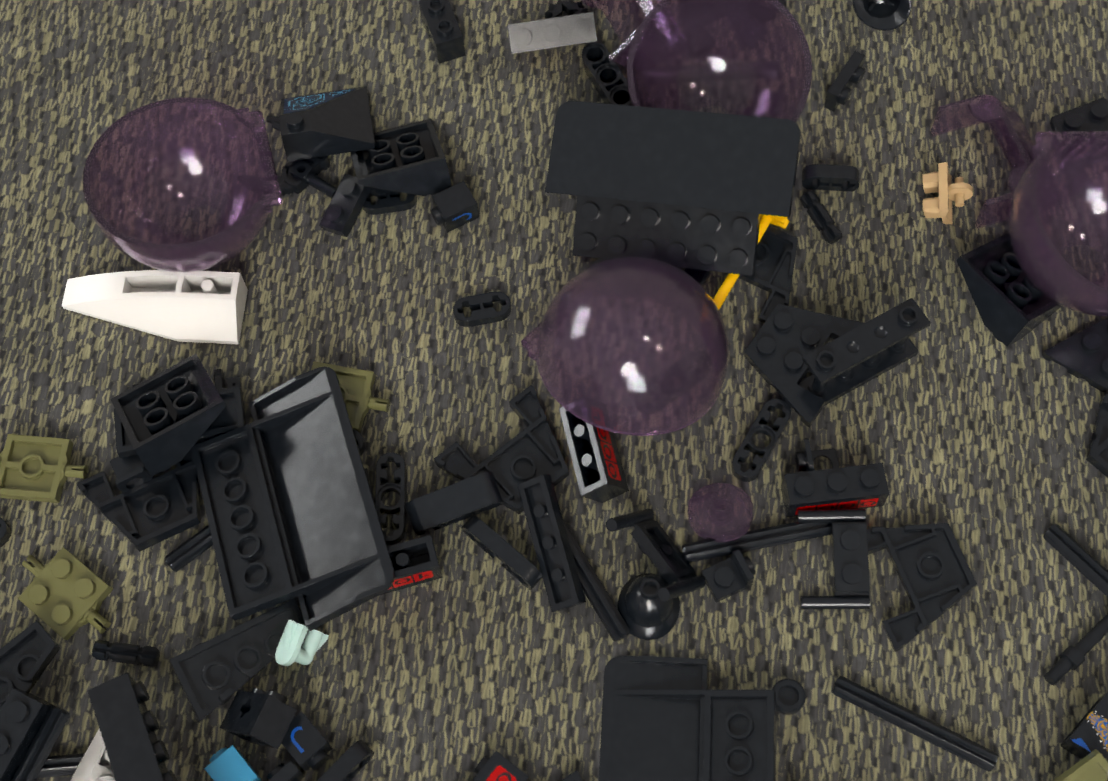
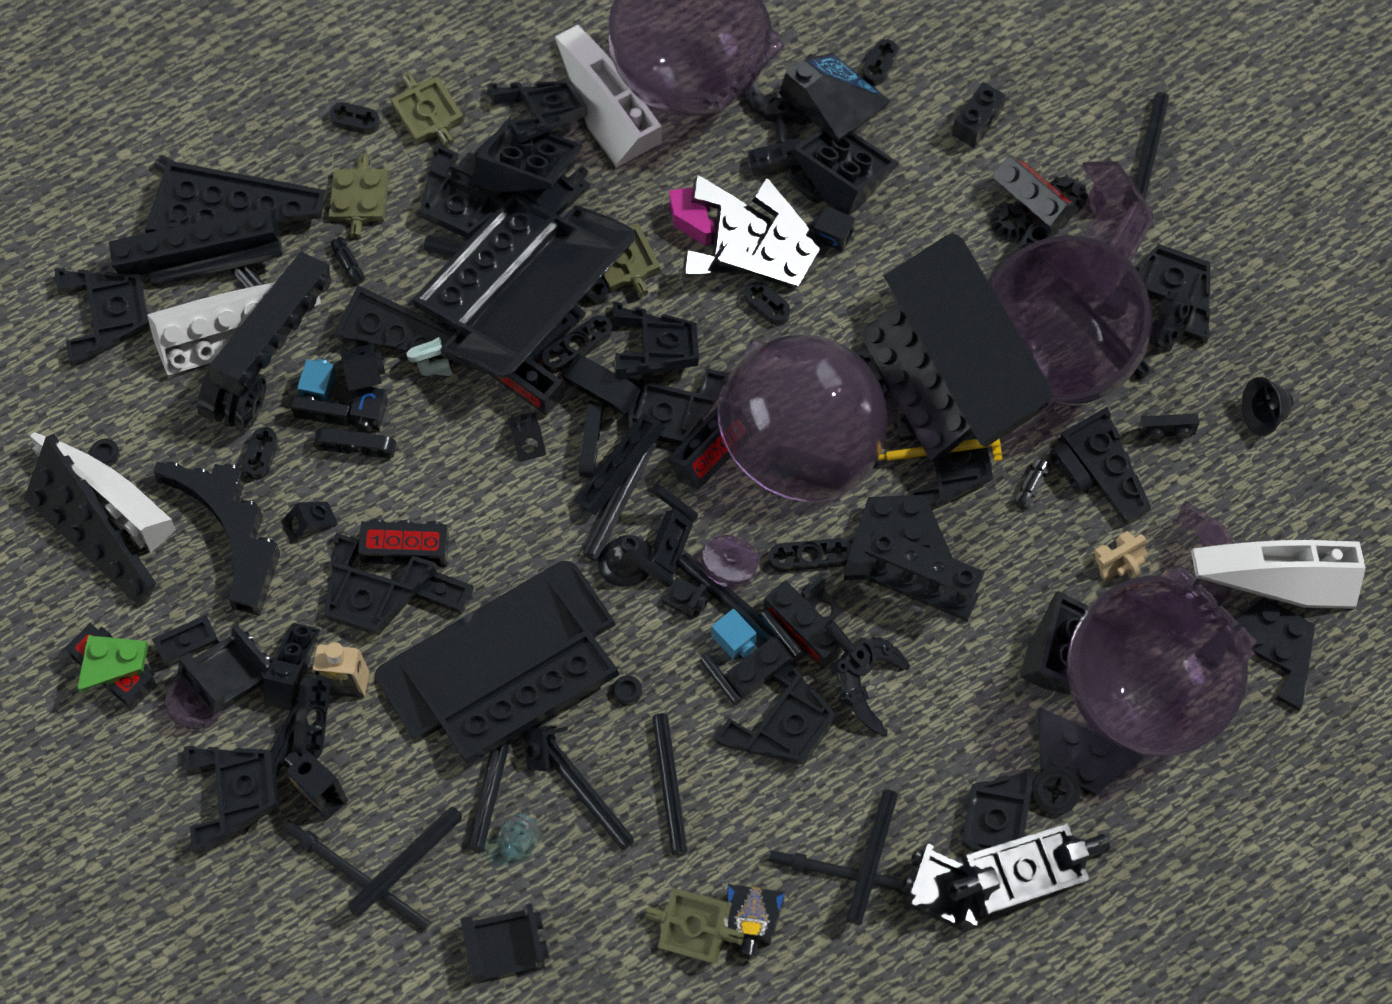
camera: 50 degrees right, 0 degrees up
(126, 352) = (548, 102): none -> black wing
(329, 66) = (875, 59): none -> black beam
(342, 311) = (690, 216): none -> dark pink slope
(399, 286) = (734, 223): none -> wing
(441, 255) = (785, 248): none -> wing
(444, 604) = (523, 428): none -> black bracket
(456, 416) = (666, 342): none -> black wing
(565, 79) = (1007, 230): none -> black gear
(801, 558) = (734, 635): none -> dark azure brick
(849, 147) = (1102, 455): none -> black wing
(912, 473) = (857, 662): none -> black bar
(1055, 80) = (1287, 570): none -> white wedge

